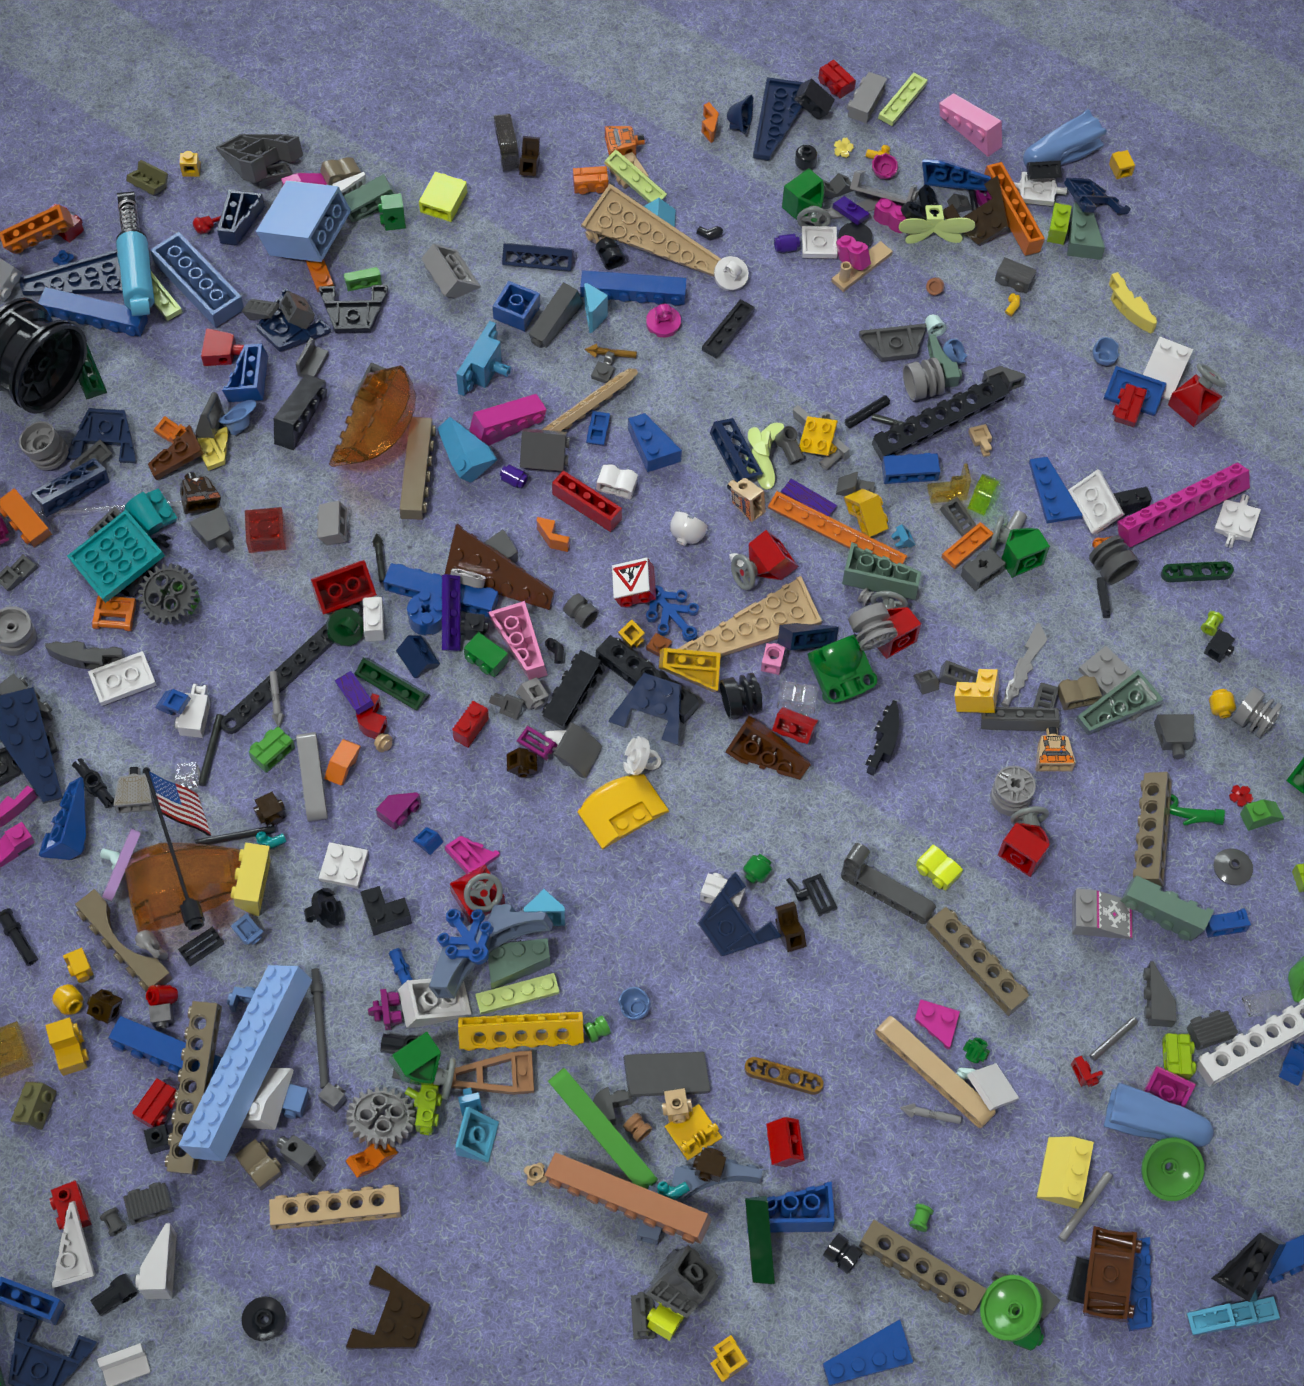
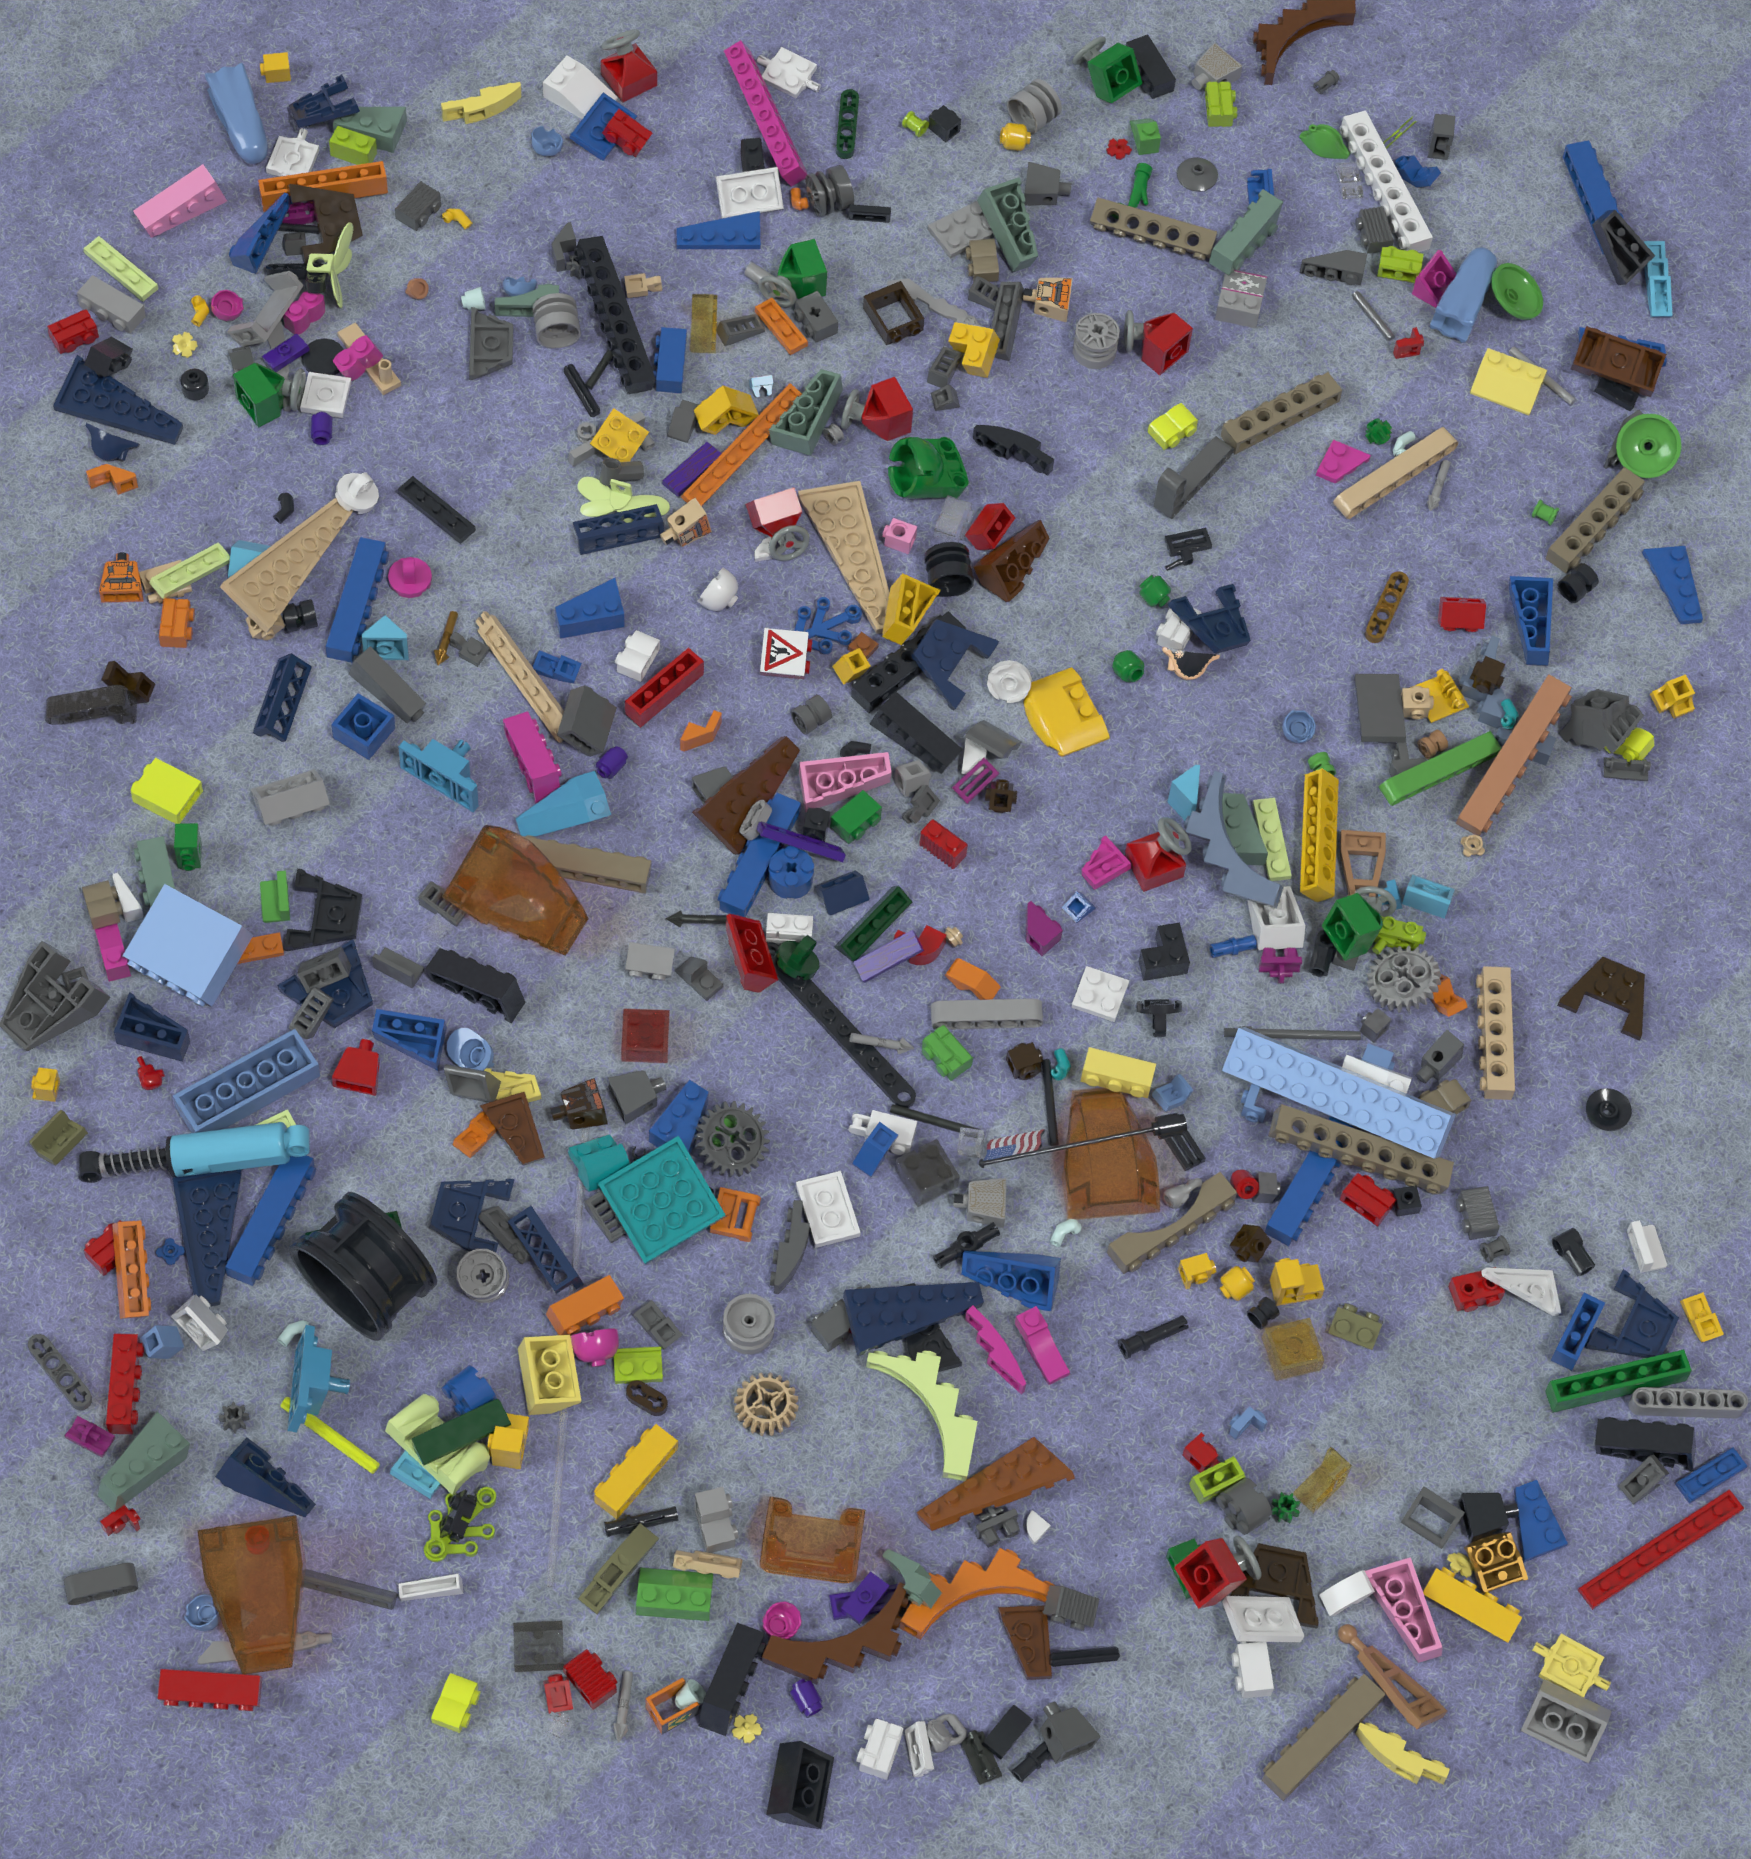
camera: 85 degrees left, 0 degrees up
(37, 1022) = (1263, 1313): none -> black wheel
(121, 864) = (1083, 1210): lavender beam -> none
(157, 745) = (927, 1173): none -> clear smoke piece
(157, 1270) = (1552, 1199): white slope -> none
(204, 567) = (681, 1117): none -> blue wedge
(328, 560) = (696, 974): none -> dark grey slope
(478, 952) = (1222, 860): blue plant -> none
(674, 854) = (1128, 666): none -> green head
(686, 902) = (1188, 664): none -> black hat
(760, 1240) = (1566, 644): dark green slope -> none
(789, 927) = (1230, 571): dark brown brick -> none
(804, 636) = (880, 498): dark blue slope -> none
(872, 626) = (902, 415): light grey wheel -> none
(983, 494) = (727, 300): clear neon green brick -> none
(993, 1087) = (1419, 424): white tile -> none
(1014, 615) = (885, 297): none -> dark brown window
(1044, 170) = (276, 142): black plate -> none

